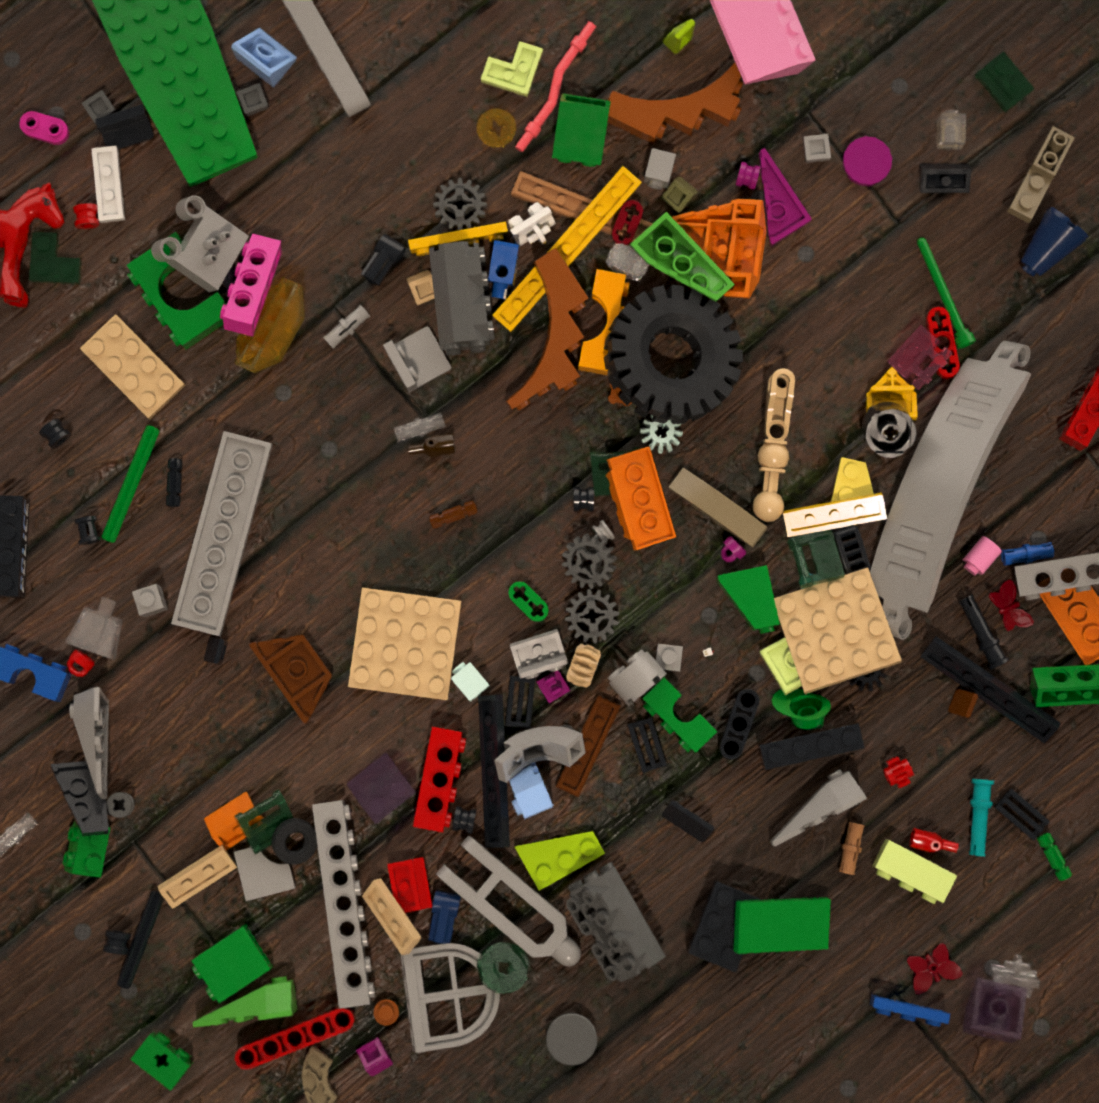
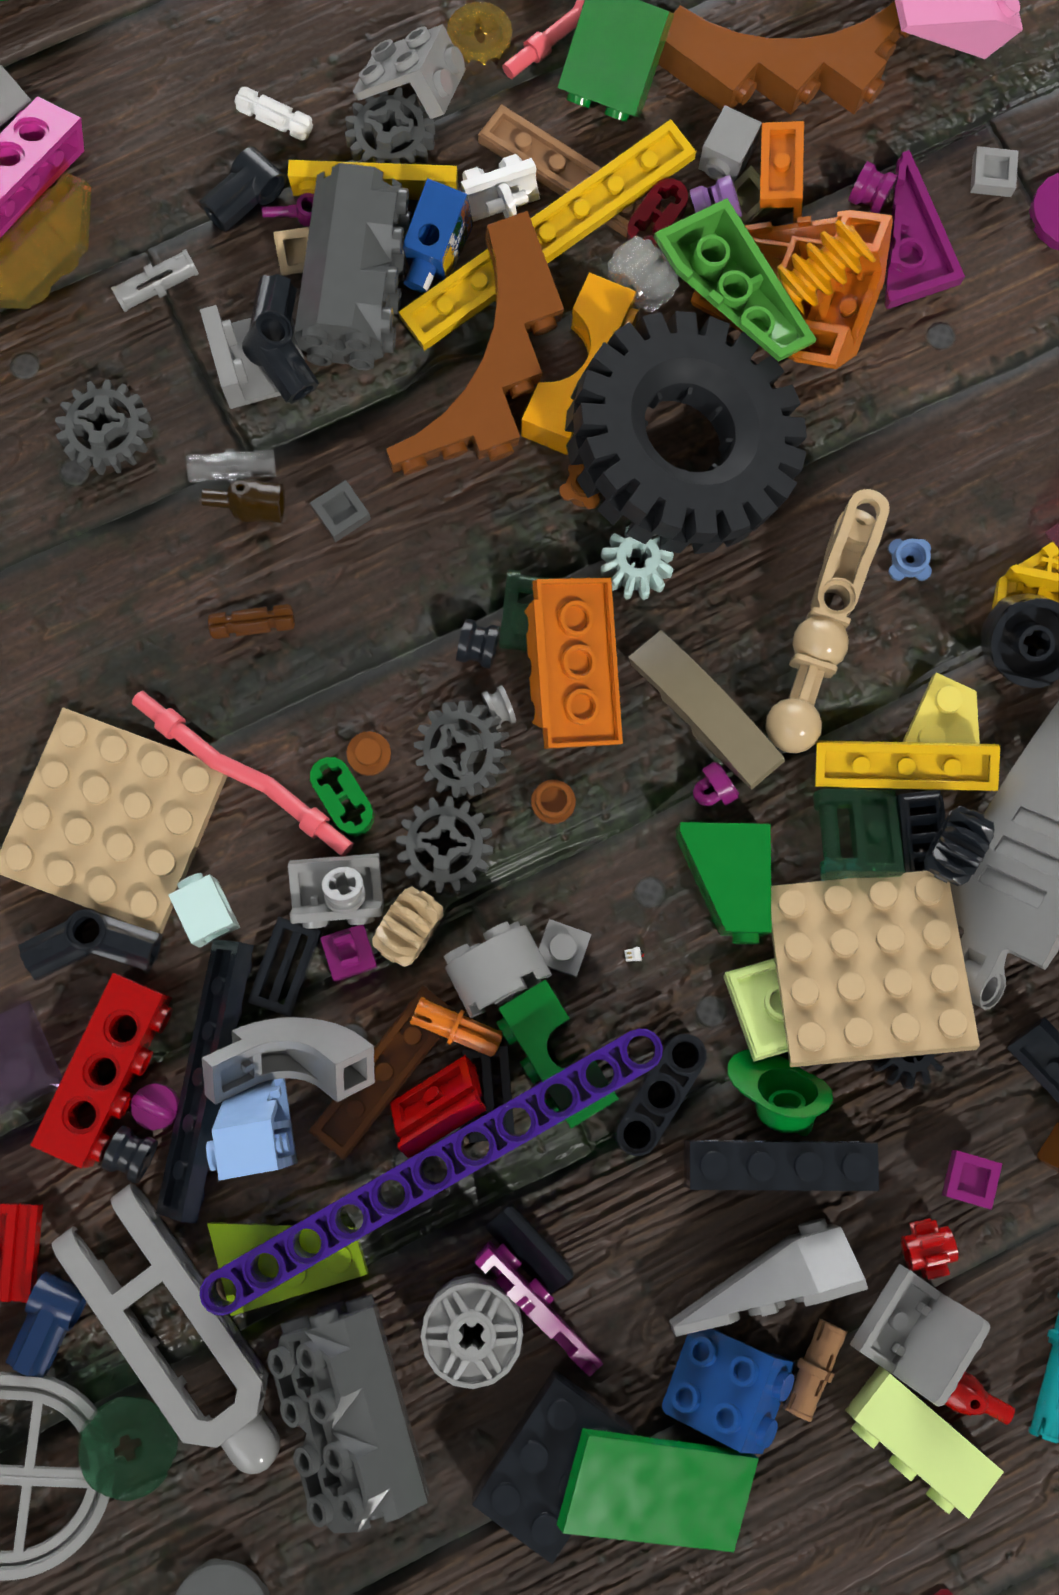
camera: 10 degrees right, 5 degrees down
(353, 420) = (109, 432): none -> dark grey gear
(388, 206) = (273, 113): none -> white axle
(414, 264) = (292, 211): none -> magenta hand
(423, 338) = (270, 340): none -> black piece
(424, 583) = (311, 821): none -> coral bar
(428, 709) = (65, 944): none -> black piece
(464, 162) = (424, 60): none -> light grey bracket
(470, 792) = (155, 1106): none -> magenta tile
(487, 439) = (340, 511): none -> dark grey plate
(537, 574) = (369, 753): none -> dark orange plate
(548, 648) = (337, 878): none -> light grey bush
(622, 713) = (456, 1027): none -> orange axle
(622, 757) = (437, 1106): none -> red plate
(623, 801) = (376, 1212): none -> dark purple beam
(645, 578) = (553, 801): none -> dark orange plate
(658, 206) = (705, 197): none -> medium lavender wheel
(662, 853) = (472, 1301): none -> light grey wheel
(693, 177) = (782, 166): none -> orange panel
(697, 846) = (535, 1301): none -> magenta wing
(730, 239) = (824, 265): none -> light orange piece
(808, 868) = (729, 1390): none -> blue bracket
(820, 397) = (917, 549): none -> medium blue plate
(870, 555) = (959, 846): none -> black gear
(900, 817) = (921, 1336): none -> light grey bracket
(913, 731) = (972, 1179): none -> magenta tile

